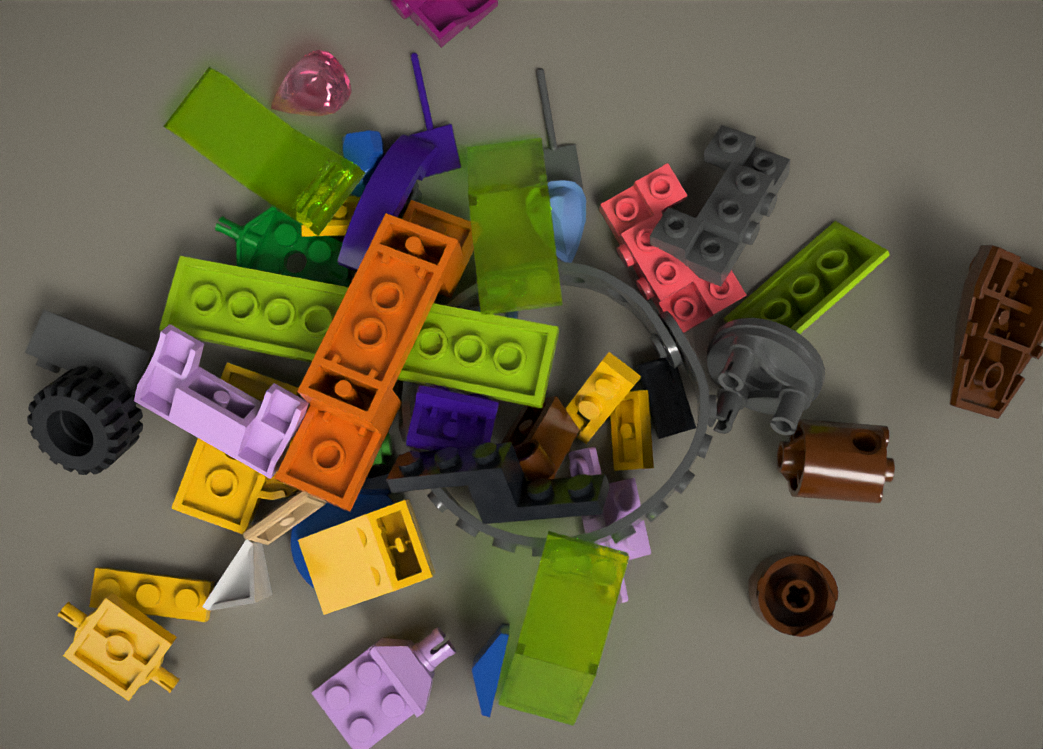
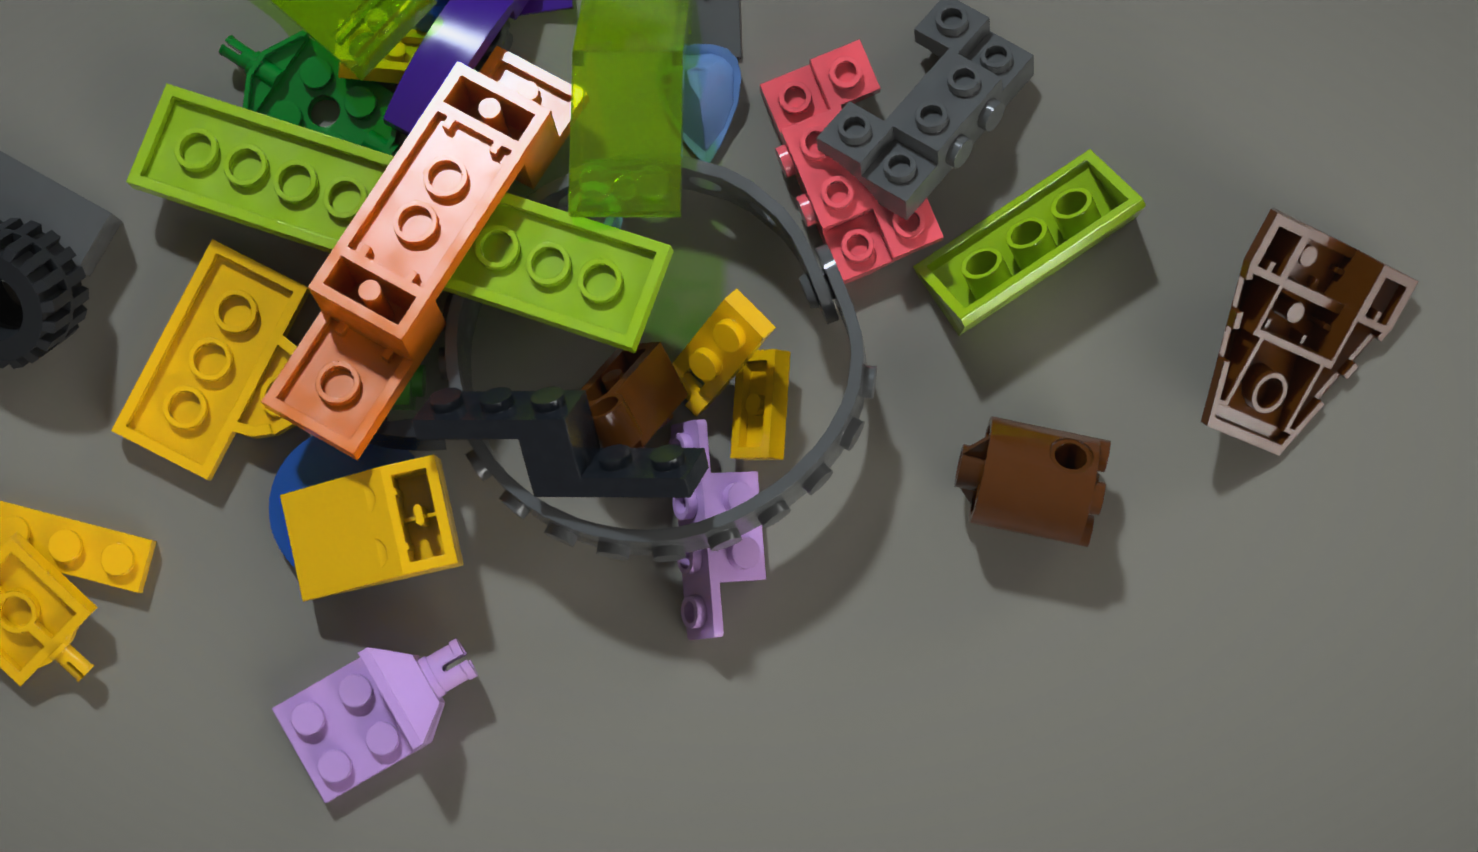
camera: 10 degrees right, 0 degrees up
(216, 410) = (191, 301): lavender bracket -> none
(243, 581) = (197, 541): white slope -> none
(283, 518) = (266, 462): tan slope -> none
(450, 419) = (508, 351): dark purple bracket -> none
(487, 668) = (518, 701): blue slope -> none
(564, 628) = (623, 658): clear neon green windscreen -> none
(667, 398) = (815, 364): black plate -> none
(765, 370) = (947, 342): dark grey piece -> none
(814, 599) = (978, 670): reddish brown brick -> none

